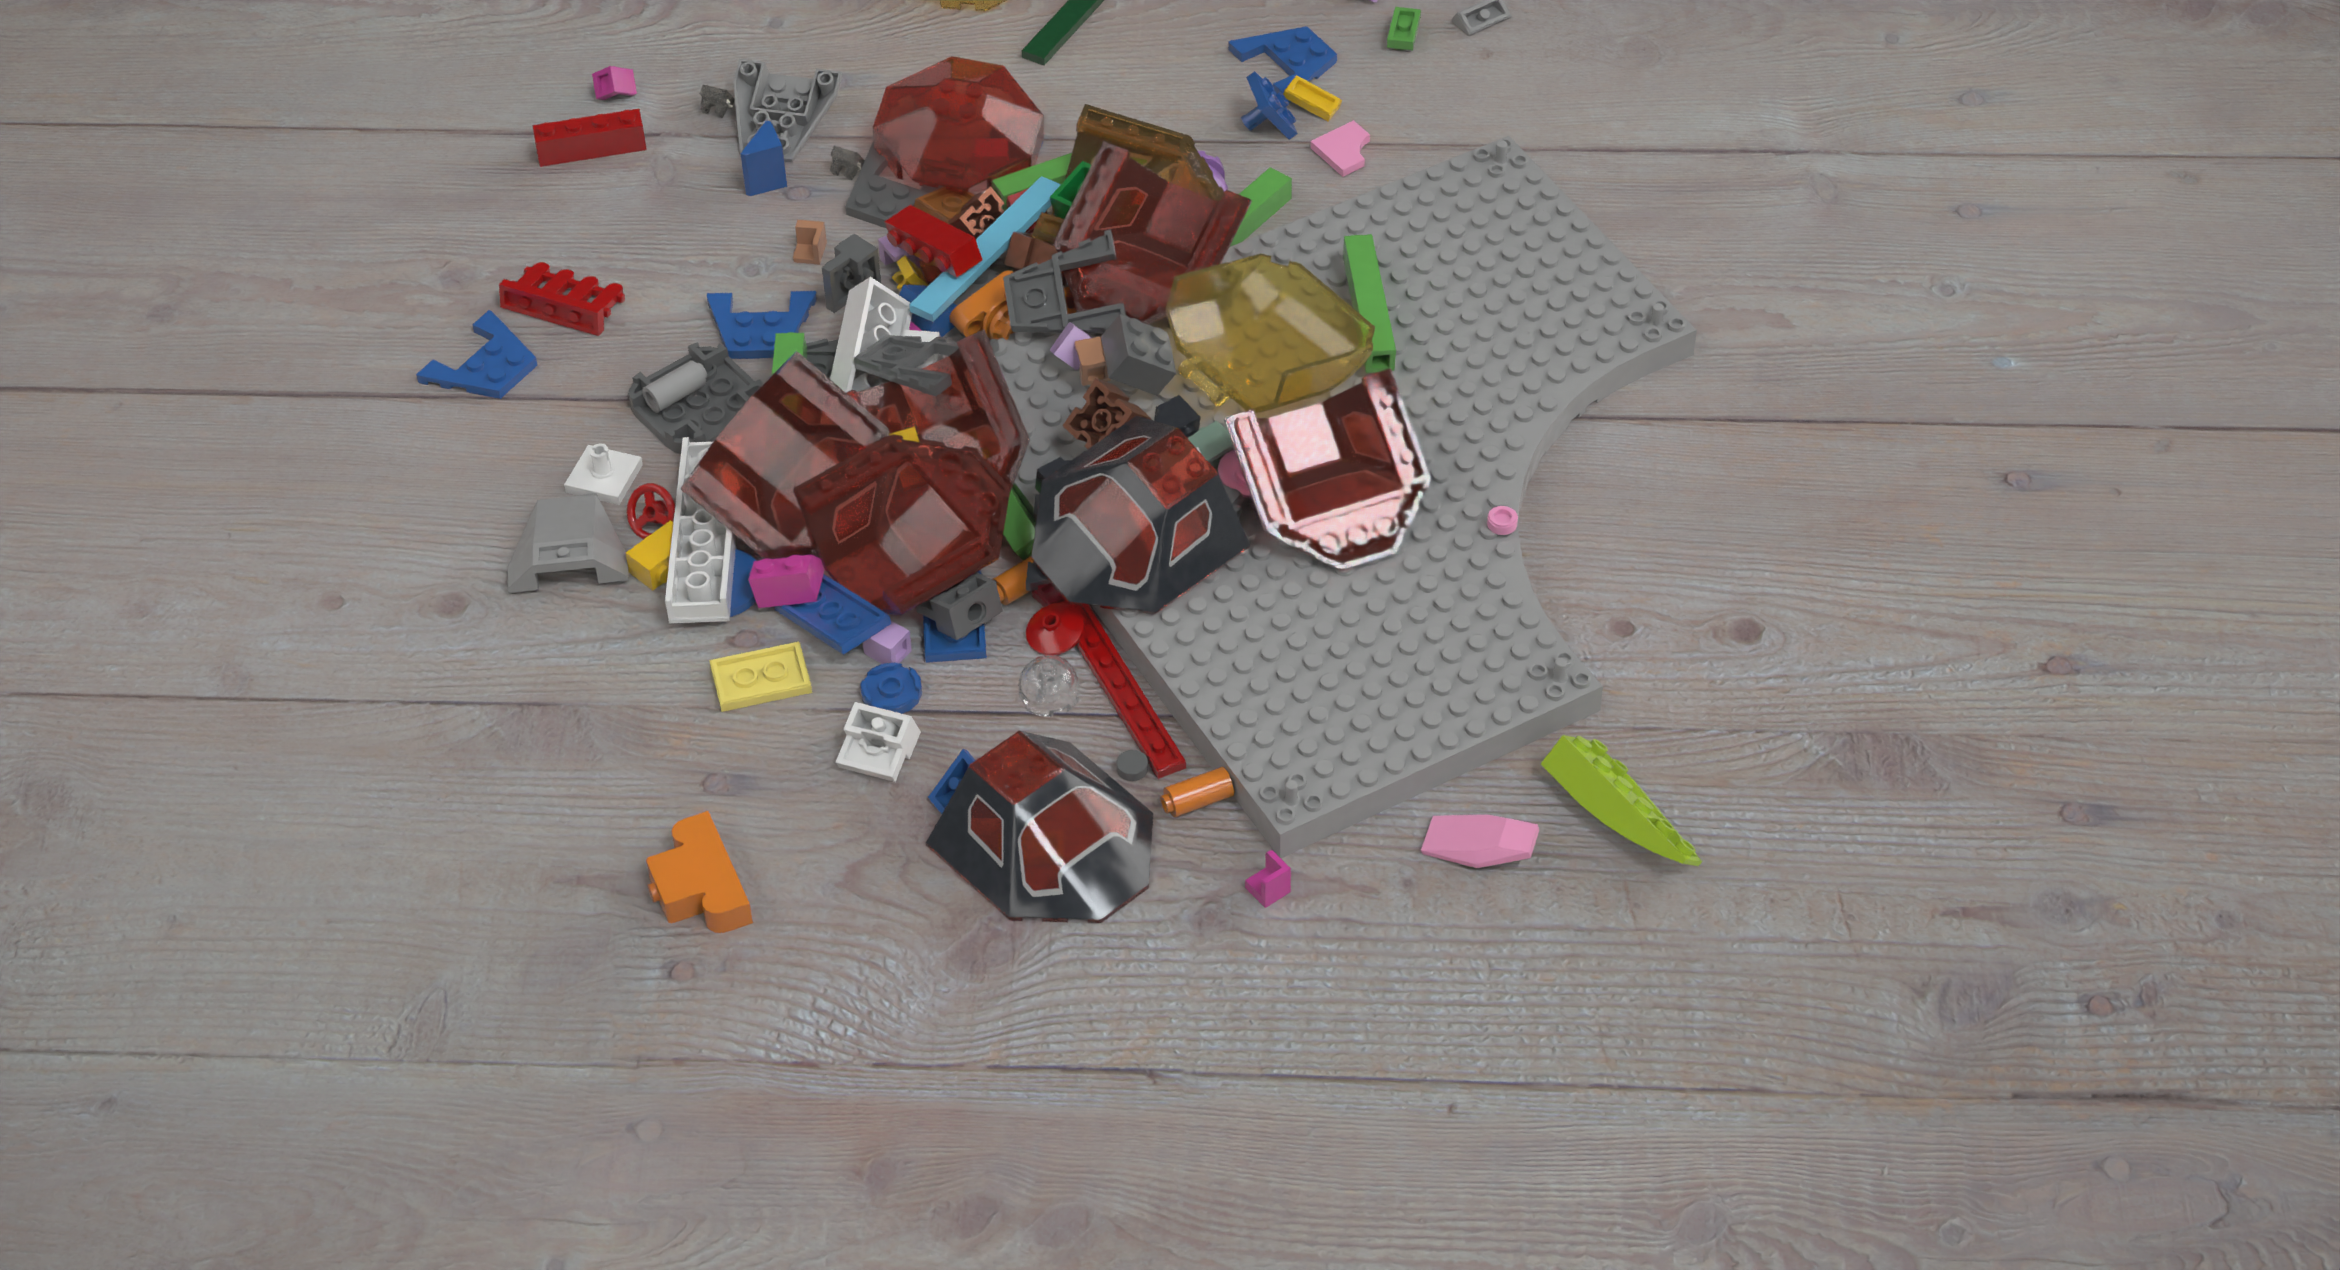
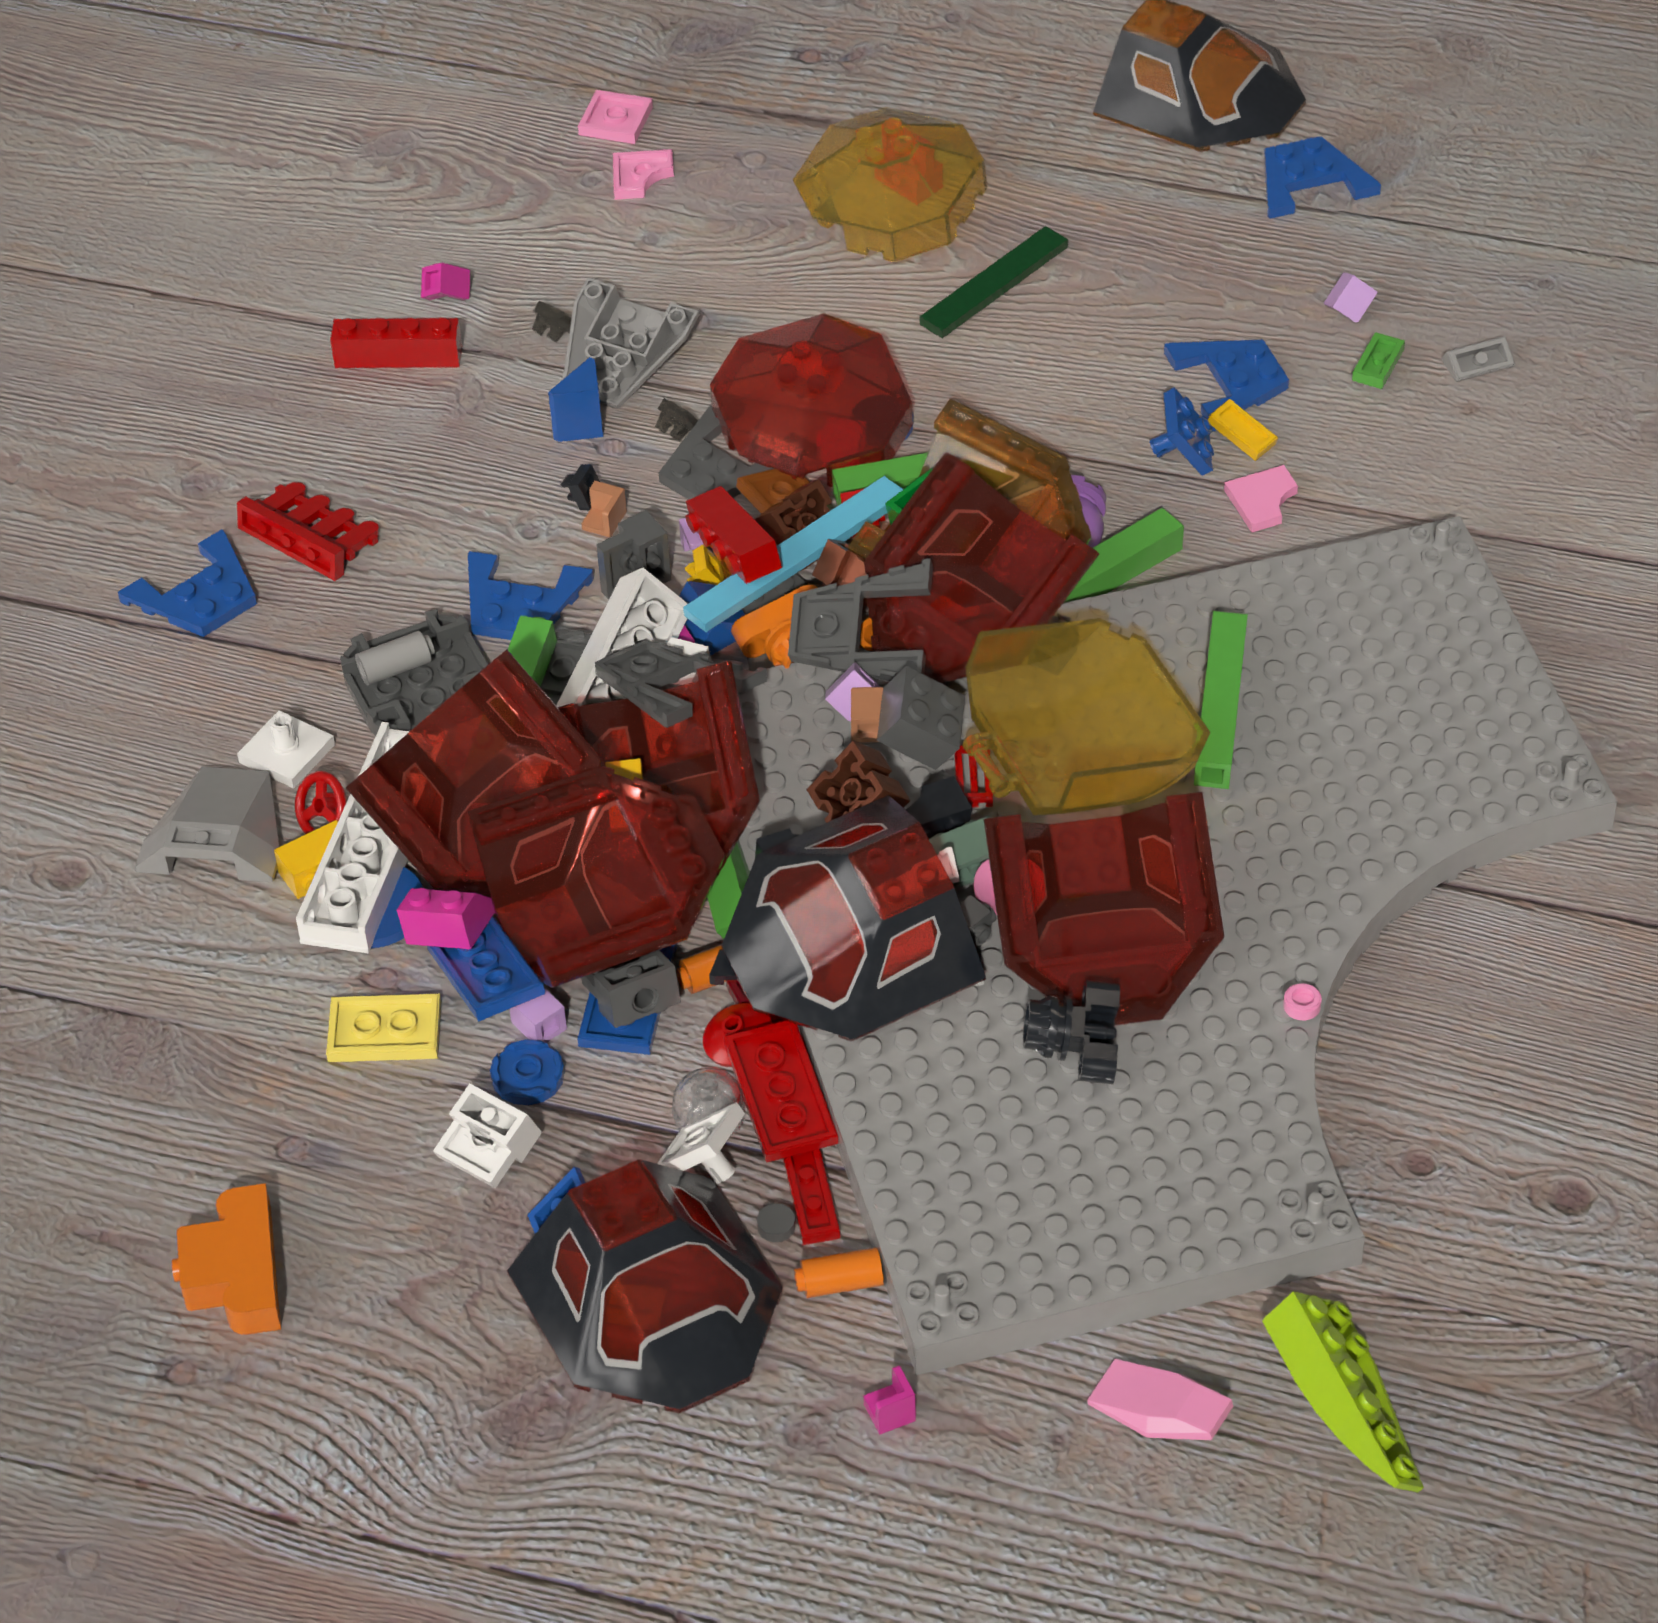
camera: 15 degrees right, 0 degrees up
(785, 227) = (579, 485): none -> black tile
(1060, 713) = (703, 1144): none -> white tile
(1106, 663) = (780, 1090): none -> red tile
(1205, 408) = (973, 797): none -> red tile
(1340, 567) = (1082, 1029): none -> black beam

